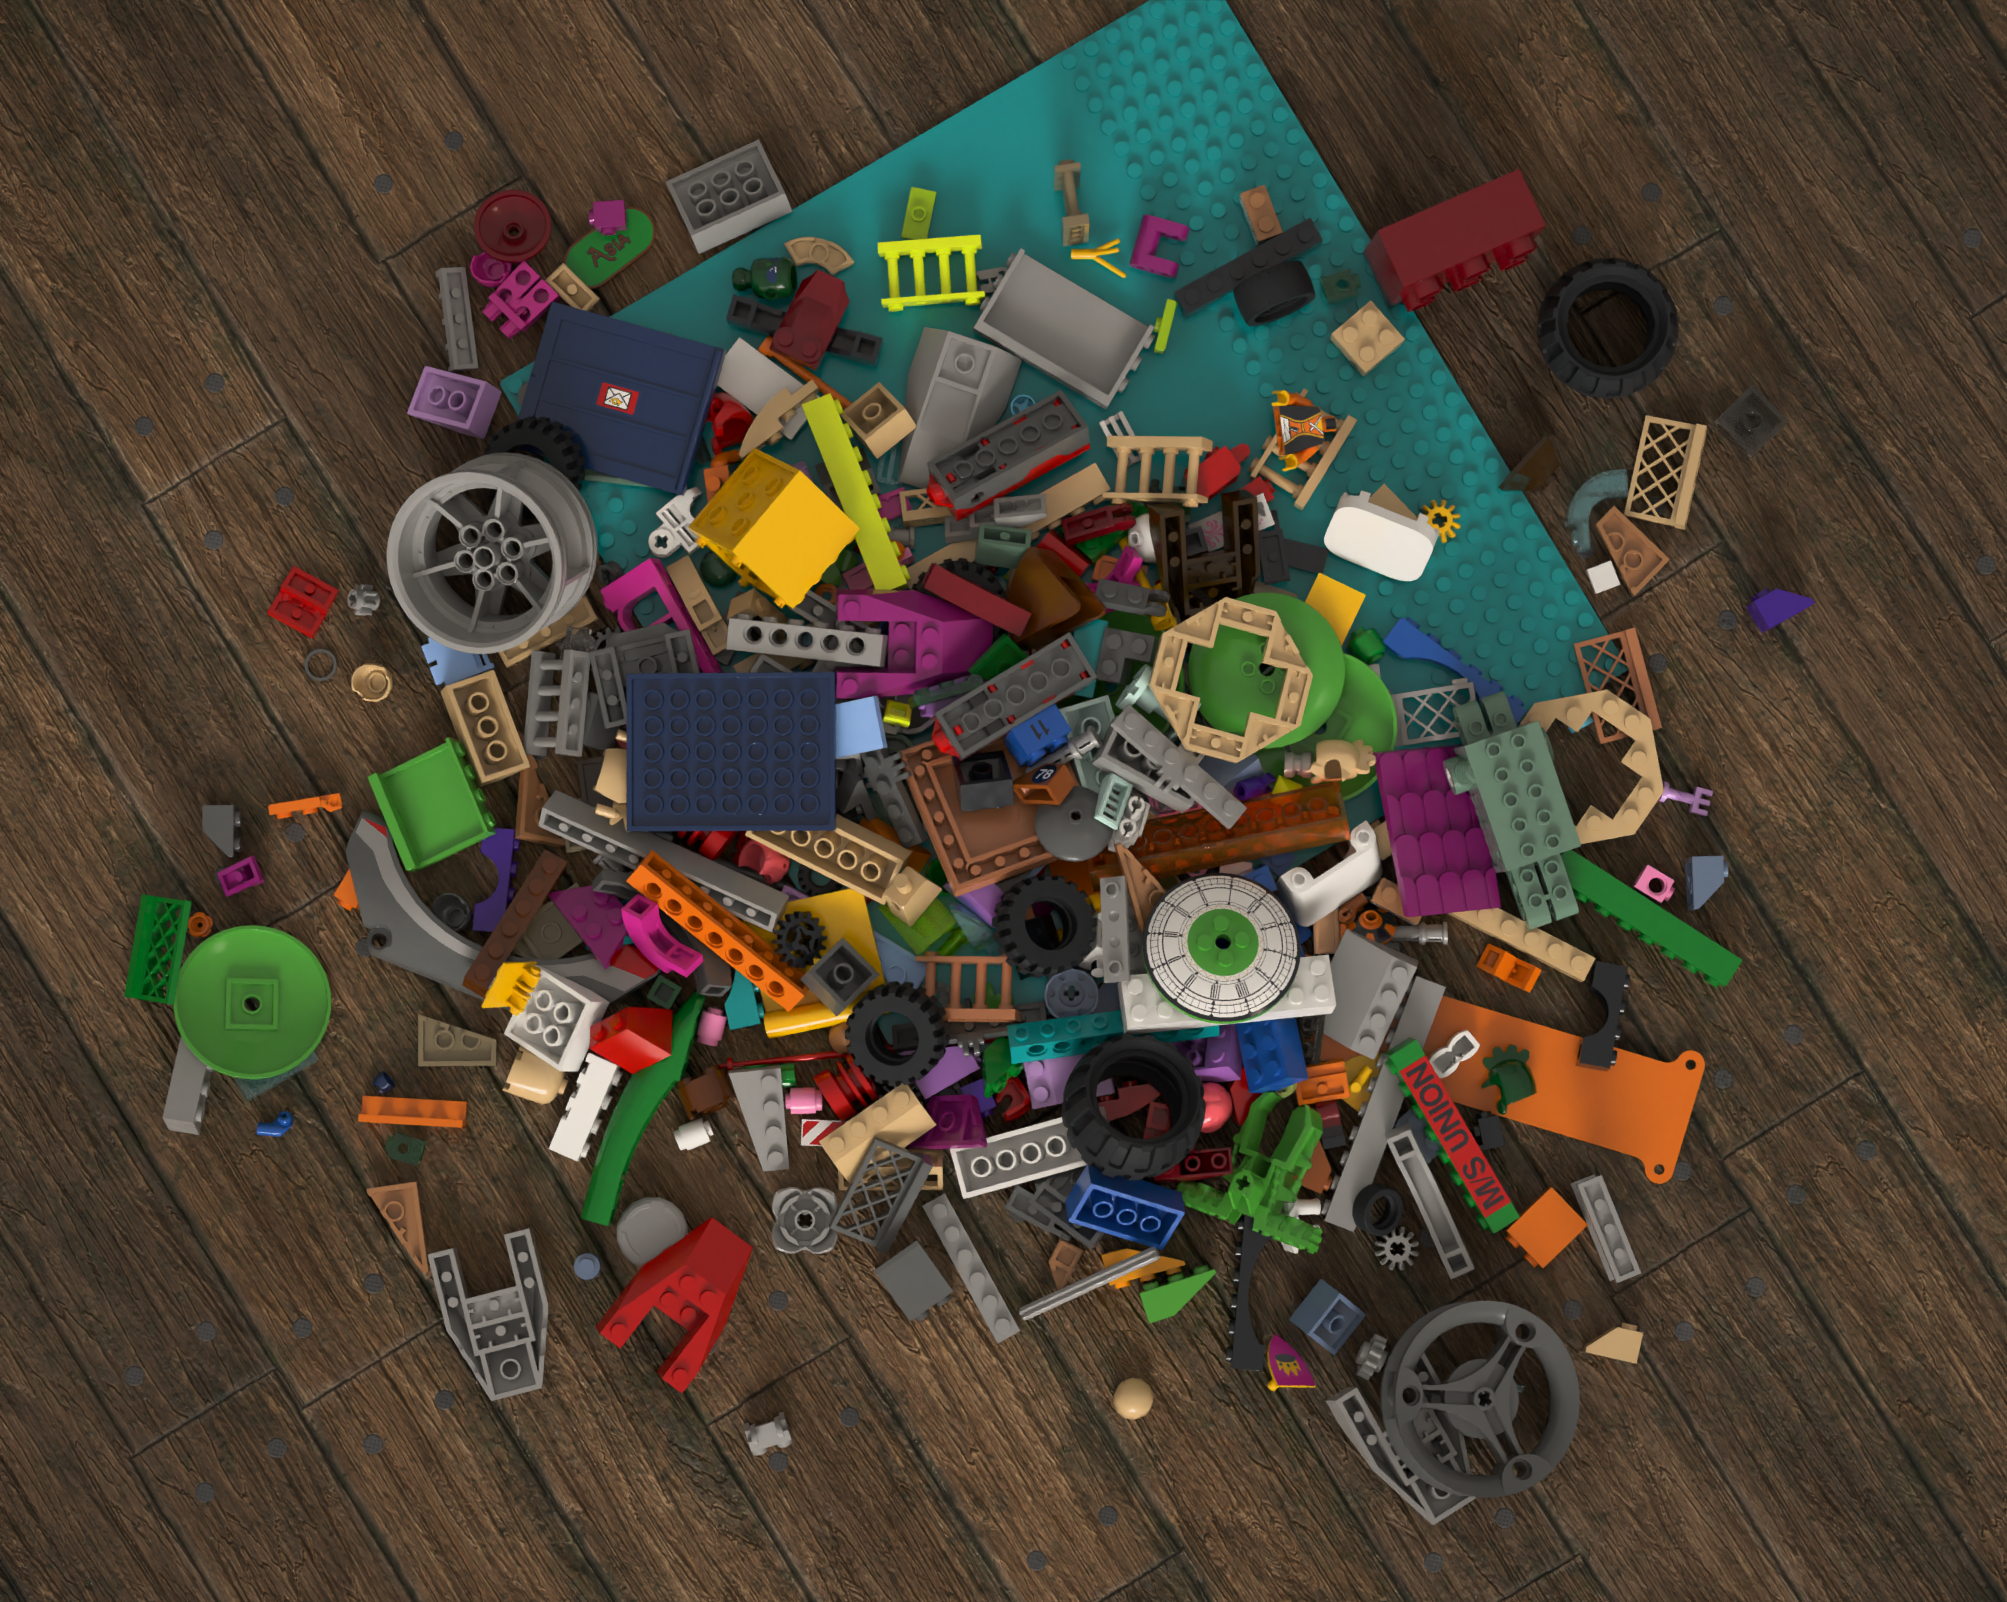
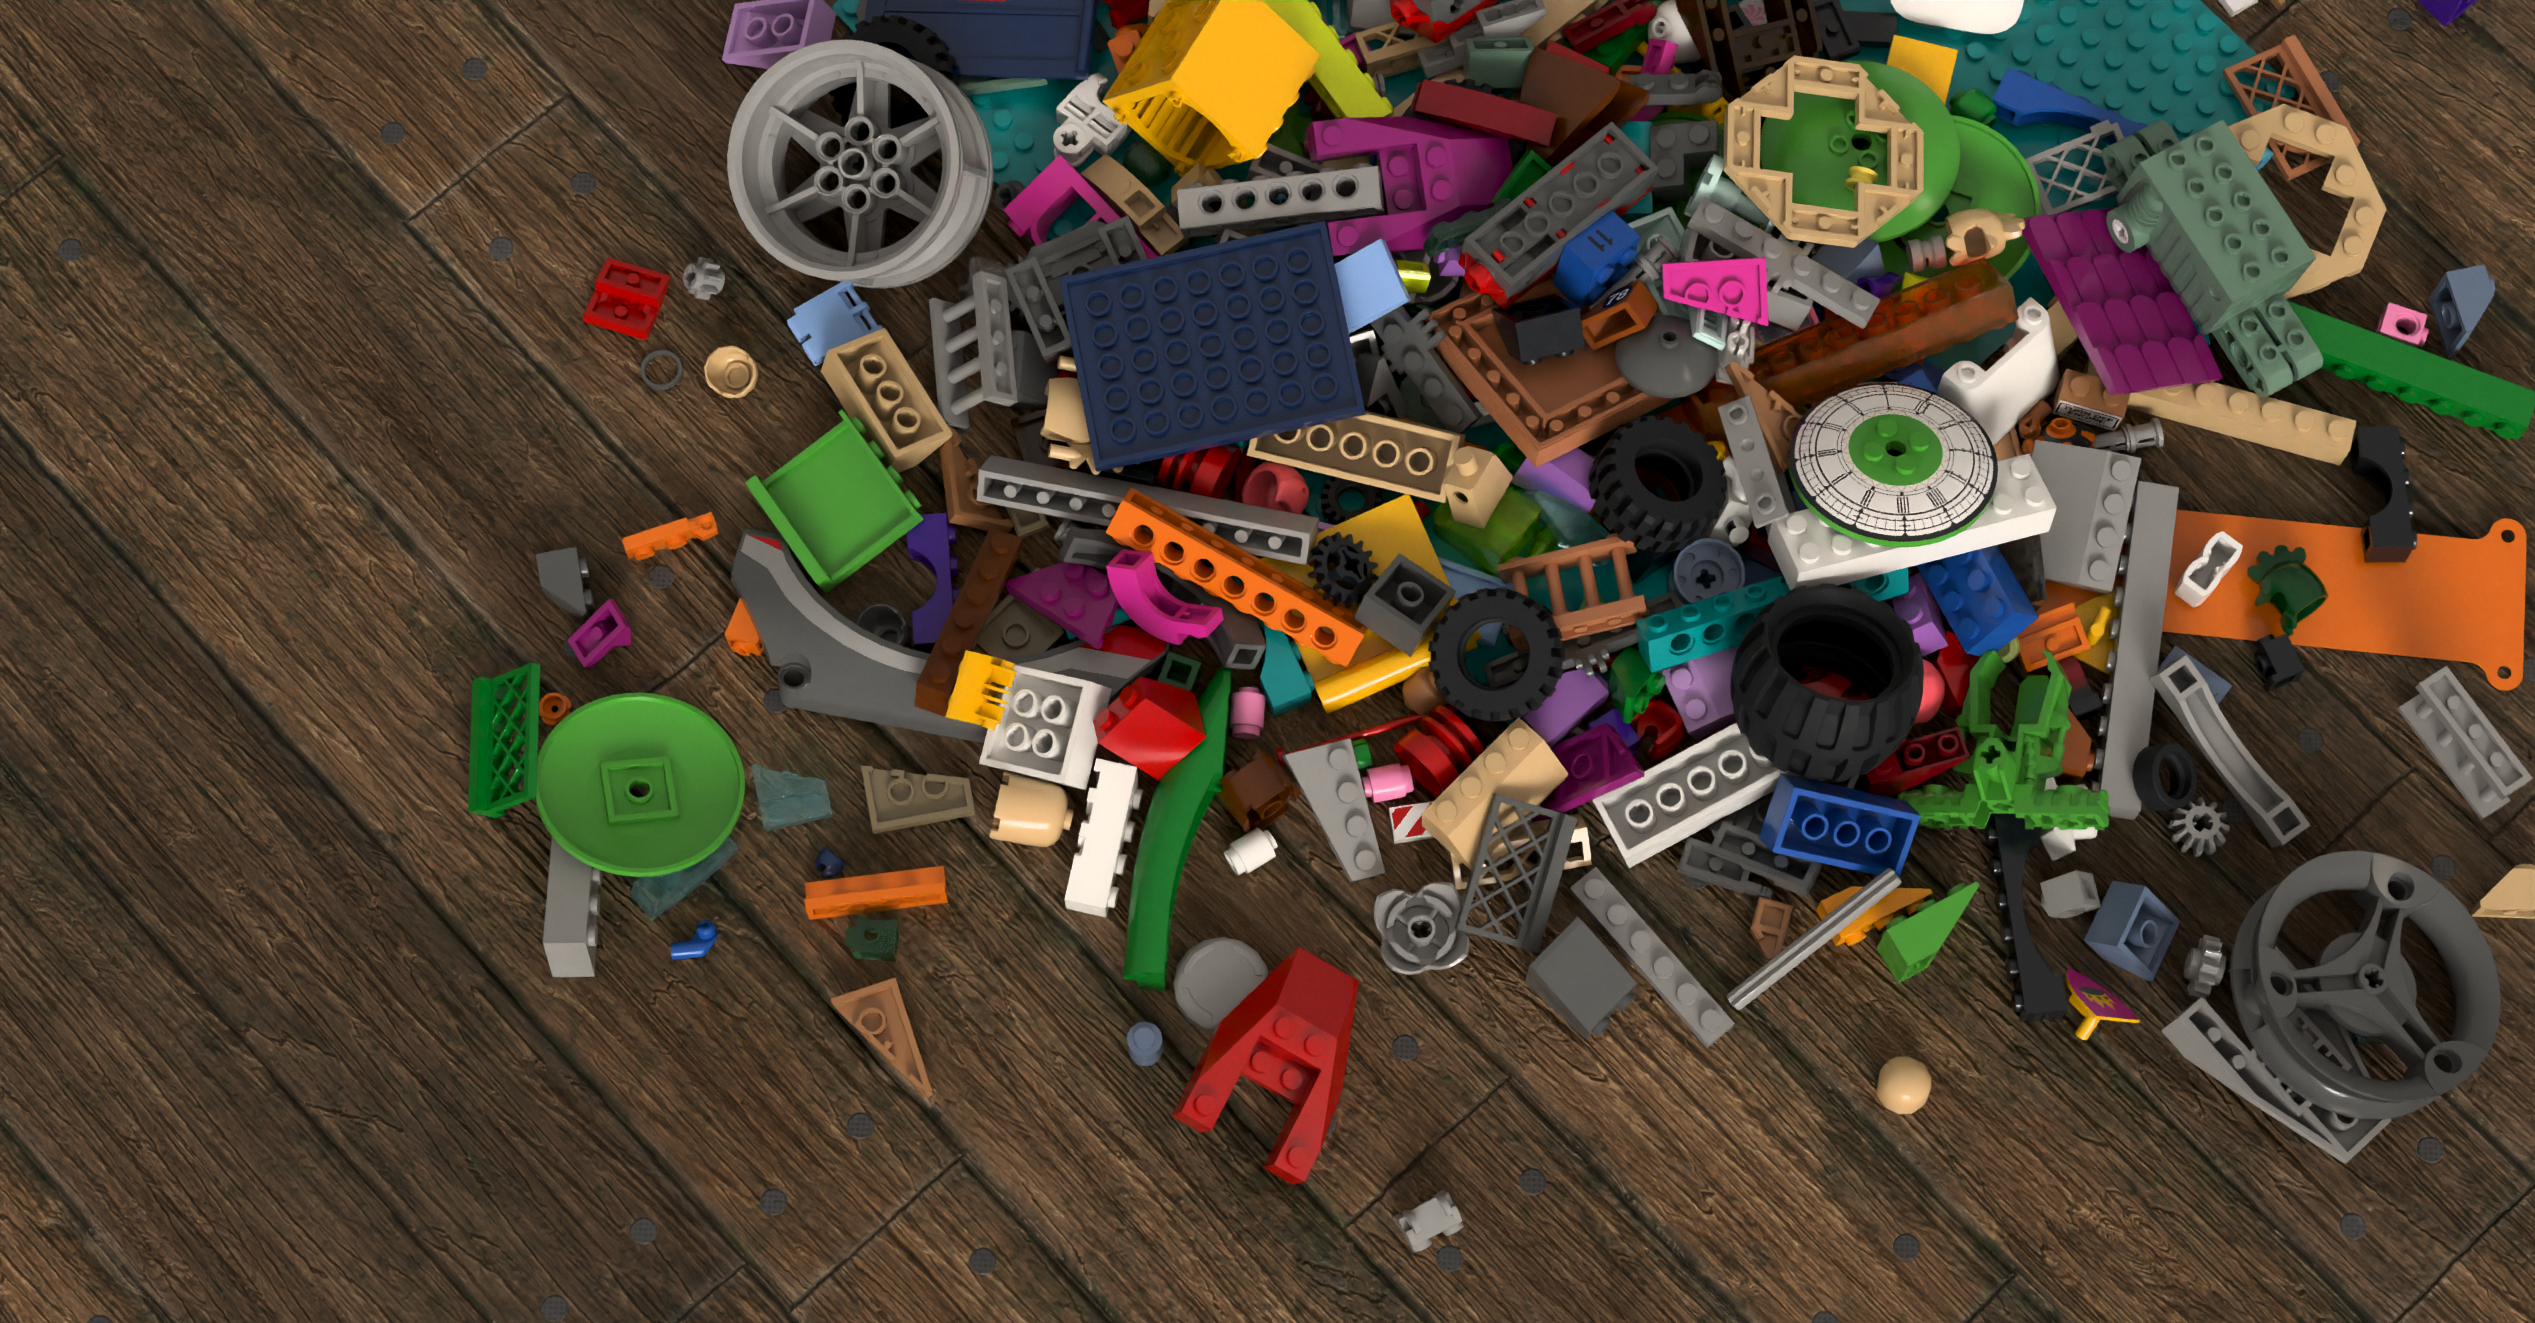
camera: 15 degrees left, 15 degrees down
(362, 1028) = (790, 799): none -> clear light blue wing
(501, 1330) = (1045, 1144): light grey wedge -> none
(578, 617) = (912, 301): tan tile -> none
(1127, 782) = (1722, 285): none -> dark pink wing
(1256, 704) = (1860, 174): none -> light yellow bush
(1287, 1283) = (2069, 895): none -> light grey brick
(1451, 1135) = (2235, 667): brick -> none
(1508, 968) = (2240, 461): orange slope -> none
(1545, 1228) = (2382, 766): orange brick -> none
(1692, 799) = (2423, 225): lavender hinge -> none

